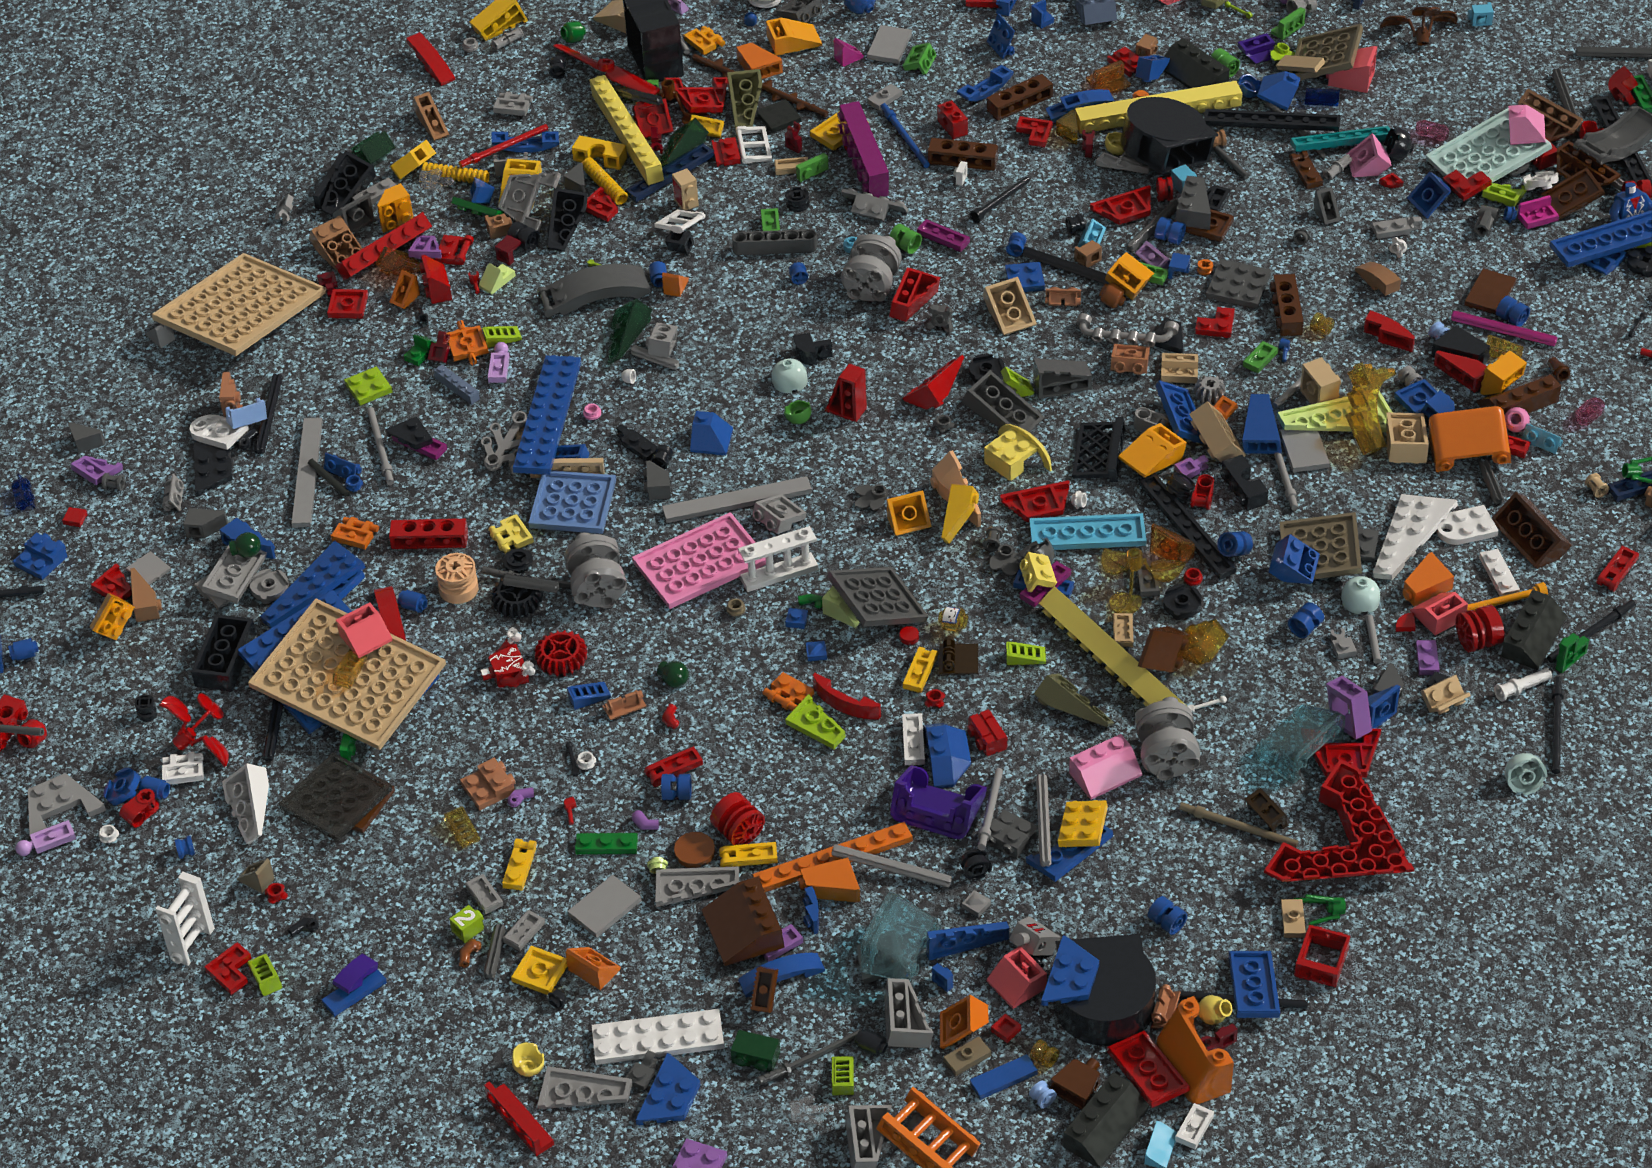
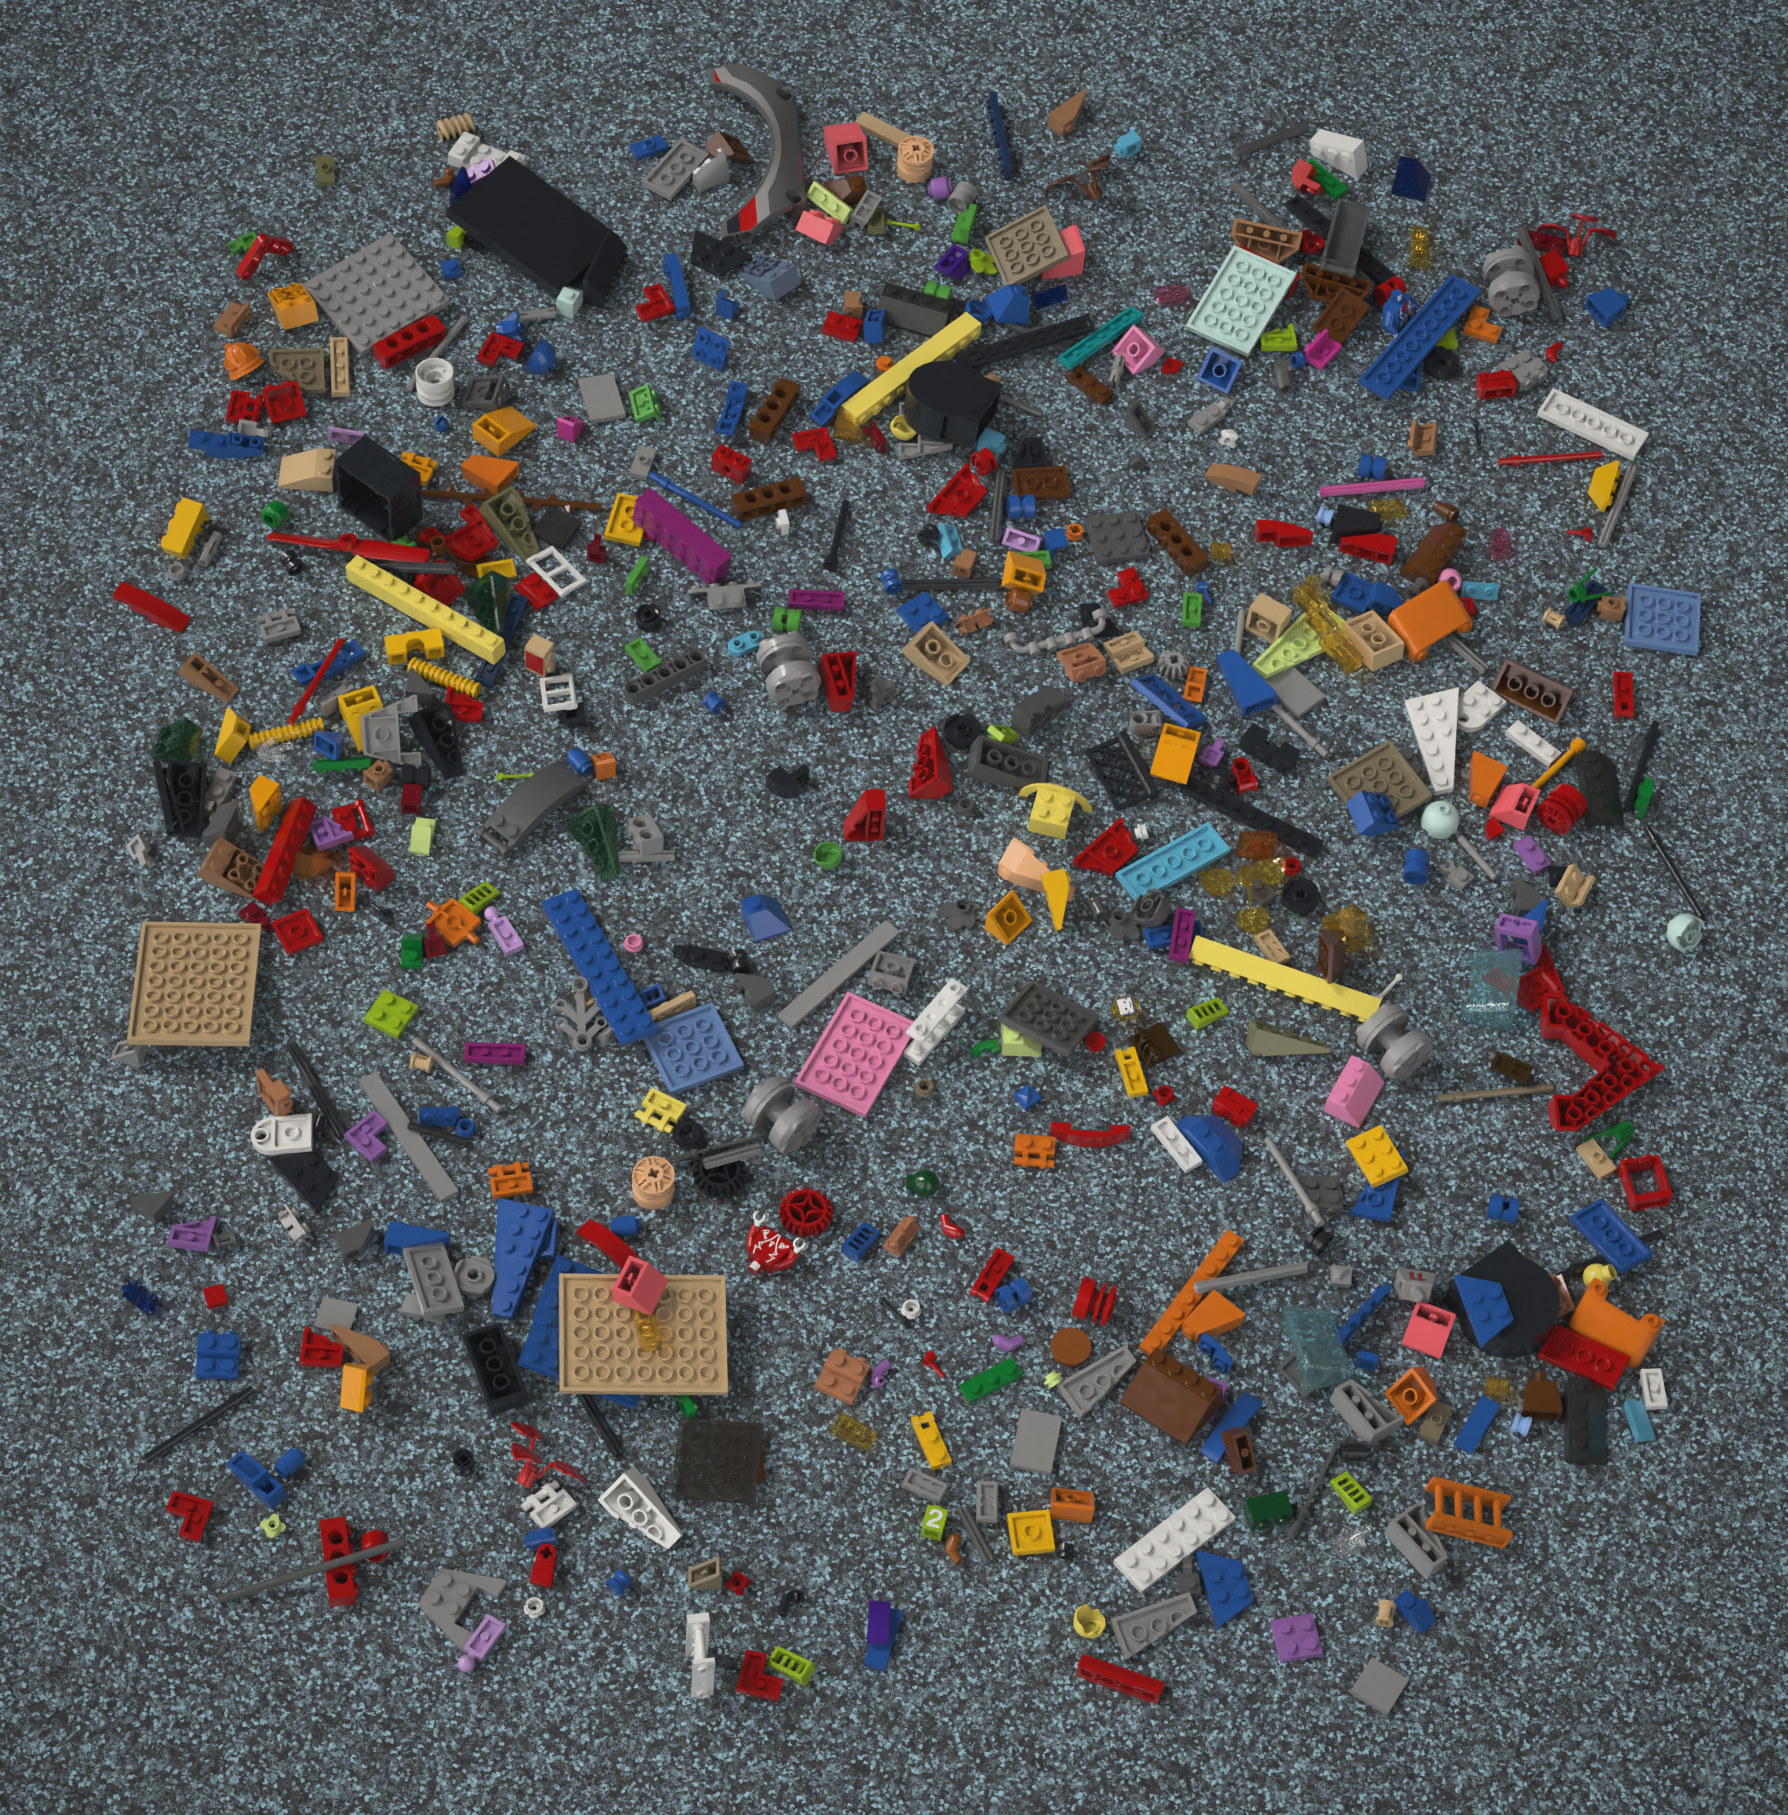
camera: 40 degrees left, 10 degrees up
(122, 787) = (521, 1560): blue plate -> none
(246, 545) = (429, 1247): dark green piece -> none
(247, 414) = (306, 1105): light blue hinge -> none
(274, 455) = (364, 1134): none -> medium lavender plate
(363, 428) = (421, 1062): none -> tan bush
(410, 433) = (484, 1048): black wing -> none
(428, 533) = (580, 1156): red brick -> none
(456, 384) = (478, 972): sand blue piece -> none
(474, 279) = (401, 848): red hand -> none
(629, 376) = (637, 888): white hinge -> none
(656, 140) = (460, 607): dark red plate -> none
(748, 854) = (1122, 1328): yellow plate -> none
(787, 166) = (611, 581): tan tile -> none
(789, 376) = (788, 820): light aqua cylinder -> none
(796, 618) = (984, 1072): blue plate -> none
(813, 722) = (1081, 1171): lime wing -> none
(933, 807) = (1246, 1201): dark purple windscreen -> none
(1006, 1028) = (1449, 1379): red plate -> none
(1037, 571) = (1172, 928): light yellow bracket -> none
(1043, 820) = (1341, 1168): light grey axle -> none
(1109, 78) = (842, 356): clear orange bracket -> none
(1194, 204) = (1028, 469): dark grey wedge -> none
(1215, 433) = (1216, 711): tan slope -> none
(1223, 1038) = (1621, 1295): dark red plate -> none
(1235, 543) = (1309, 818): blue wheel -> none
(1300, 63) = (1011, 269): tan tile -> none
(1398, 144) = (1155, 323): black cylinder -> none
(1467, 187) = (1247, 348): red plate -> none
(1489, 290) = (1335, 452): reddish brown tile -> none
(1502, 373) = (1412, 540): light orange slope -> none
(1516, 686) = (1620, 850): white pin -> none
(1525, 125) = (1264, 263): bright pink slope -> none
(1541, 179) = (1303, 313): white plate -> none
(1578, 308) = (1422, 438): none -> medium nougat bracket

